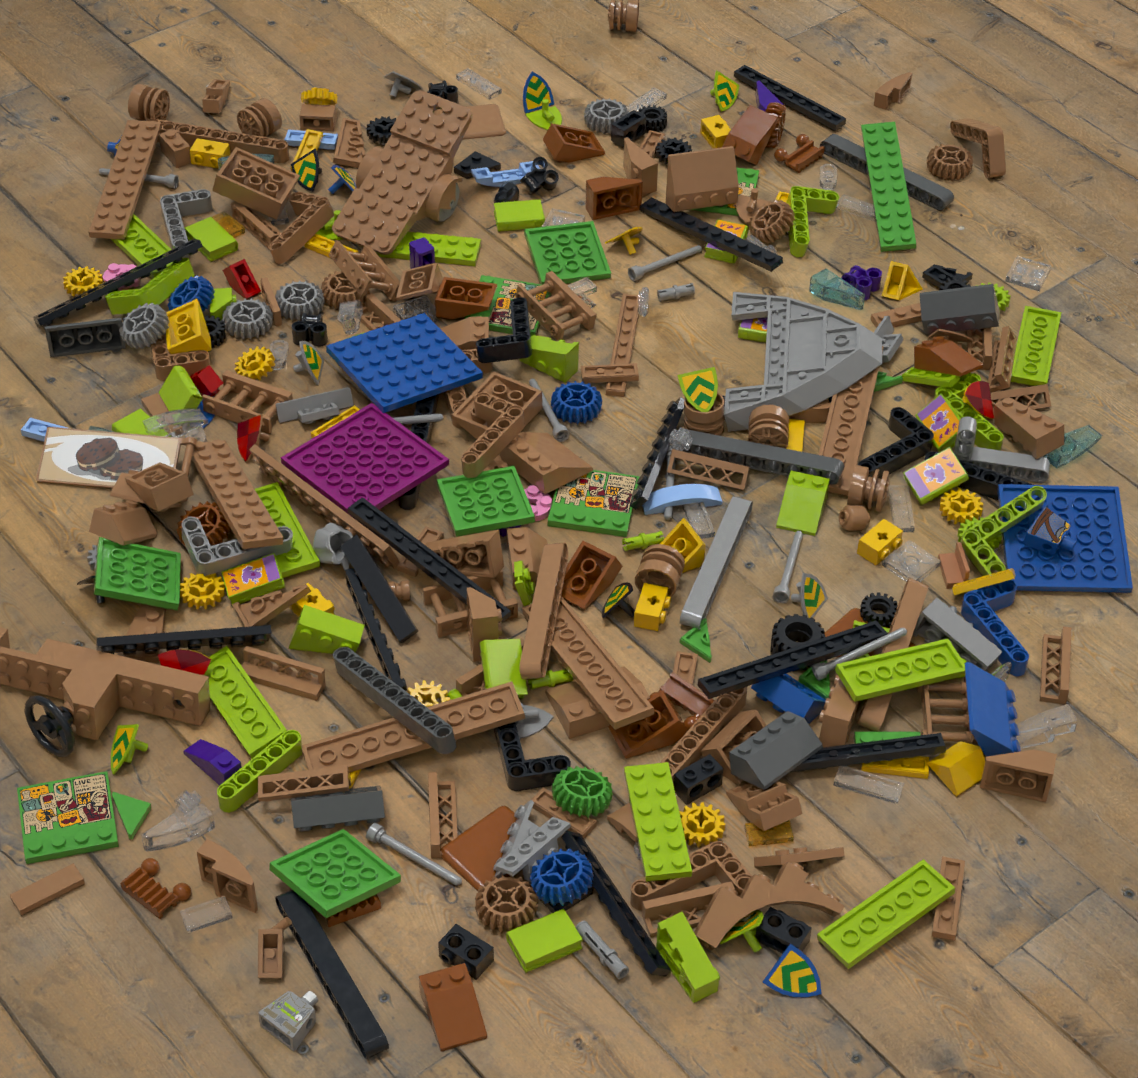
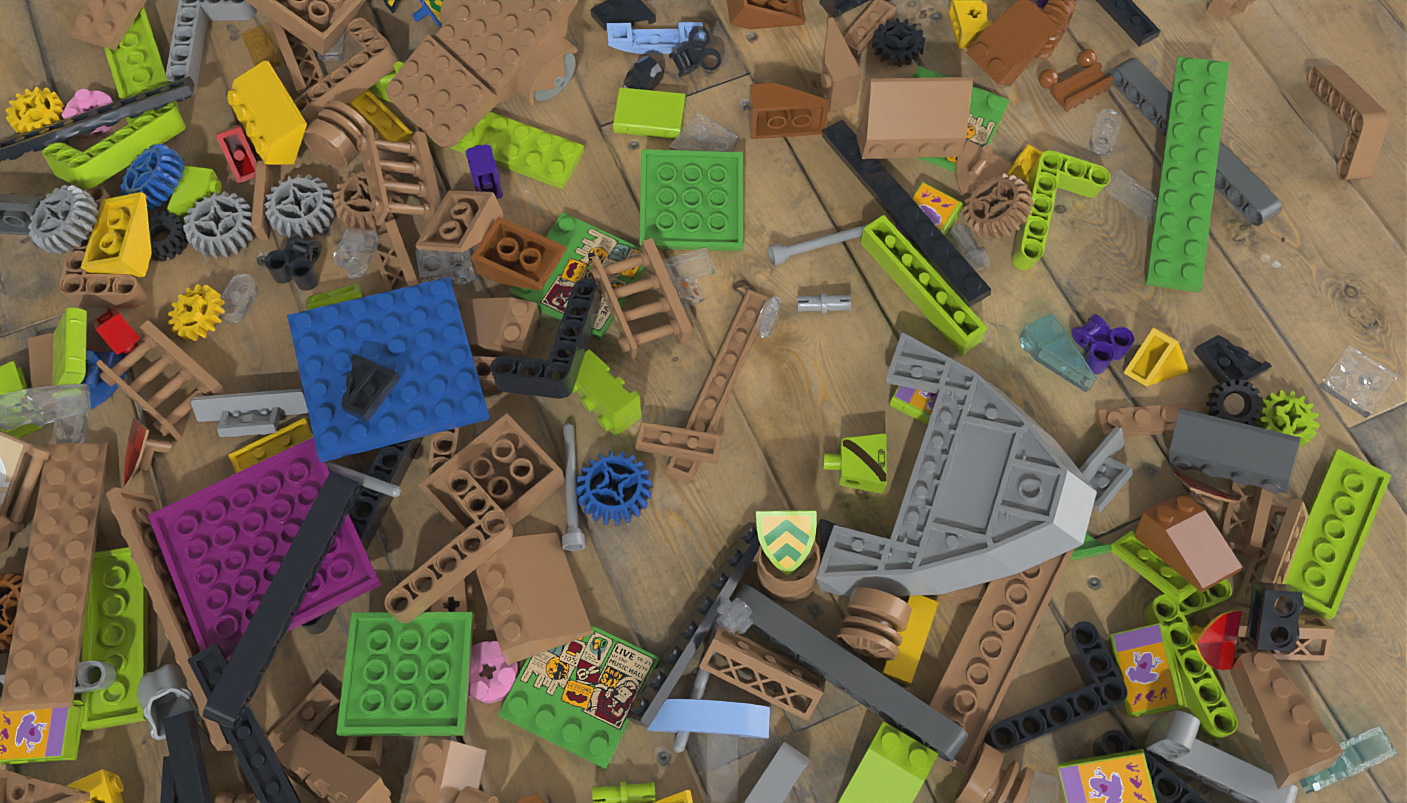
camera: 15 degrees right, 20 degrees up
(214, 238) = (223, 63): lime piece -> none
(260, 249) = (268, 114): none -> yellow slope
(309, 360) = (269, 326): shield -> none
(310, 255) = (335, 134): none -> medium nougat wheel
(396, 469) = (281, 602): none -> black beam
(401, 365) = (367, 387): none -> black wing
(629, 242) = (783, 194): yellow shield -> none
(731, 363) = (860, 462): none -> lime torso
(736, 268) = (923, 285): none -> lime brick
(949, 162) = (1291, 140): medium nougat gear -> none
(1002, 377) = (1265, 617): none -> black brick

